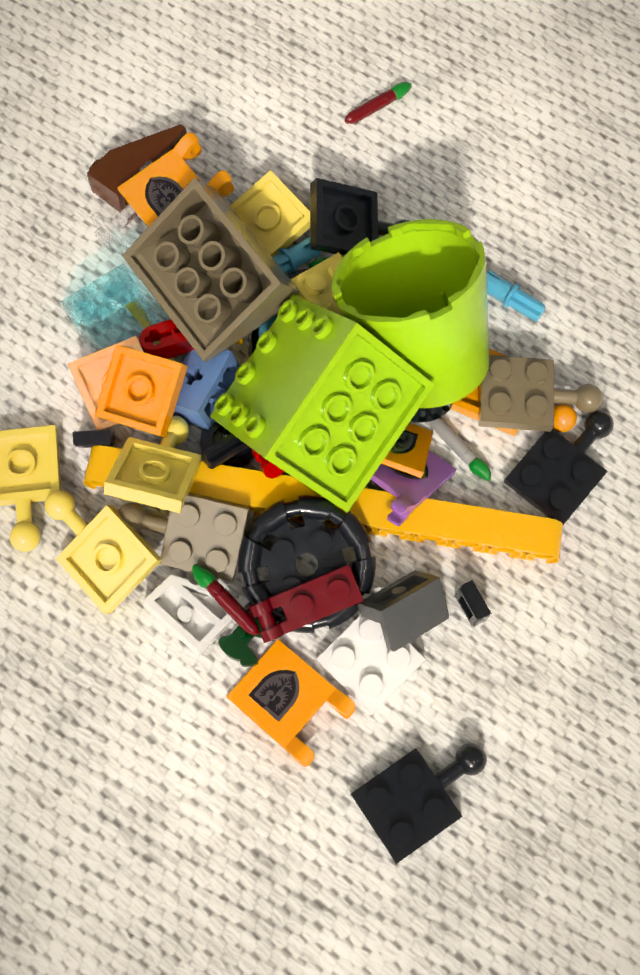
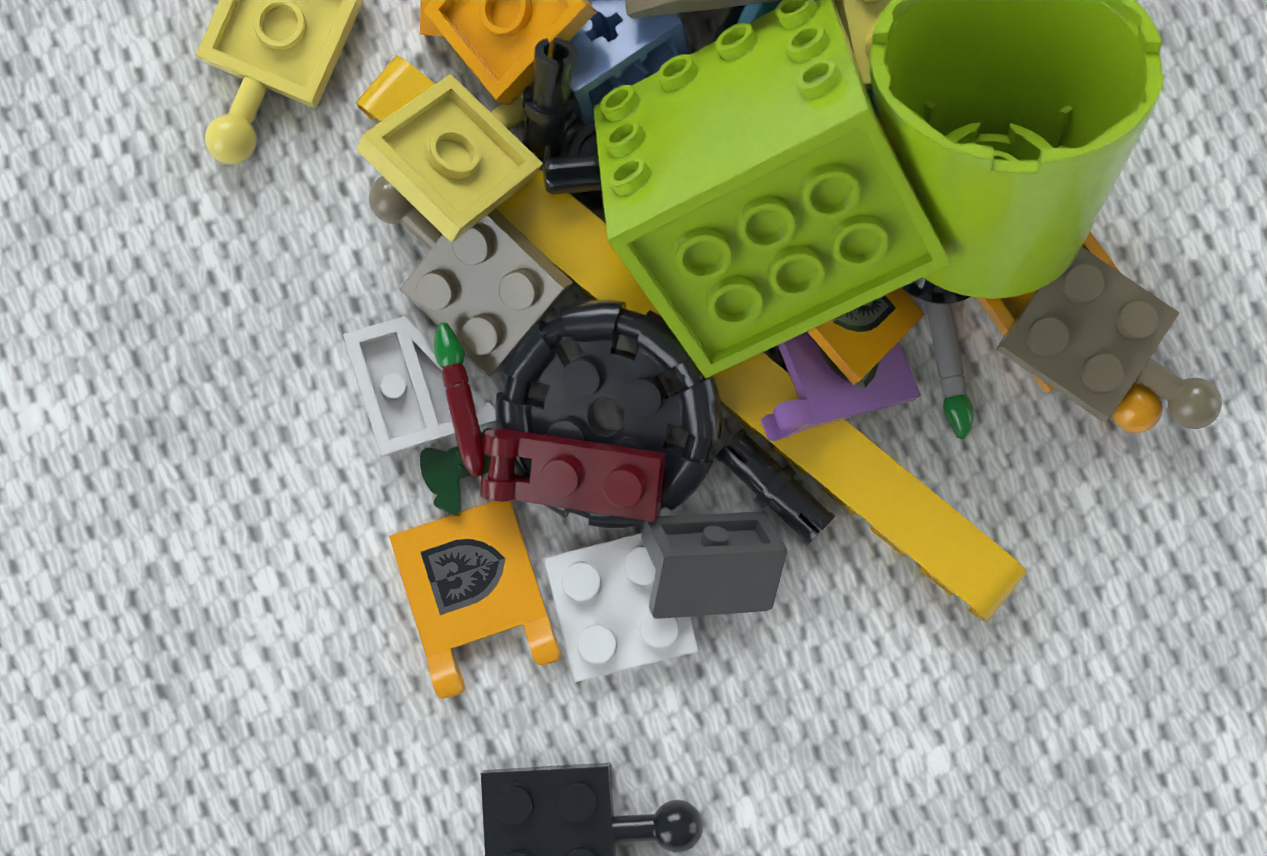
camera: 35 degrees right, 15 degrees up
(88, 439) = (406, 43): black tile -> none
(106, 555) = (328, 233): light yellow plate -> none
(185, 420) = (549, 98): none -> black pin
(412, 554) = (775, 486): none -> black pin
(472, 603) = (816, 612): black tile -> none
(512, 296) = (1185, 165): medium azure axle -> none
(559, 474) = (1076, 490): black plate -> none

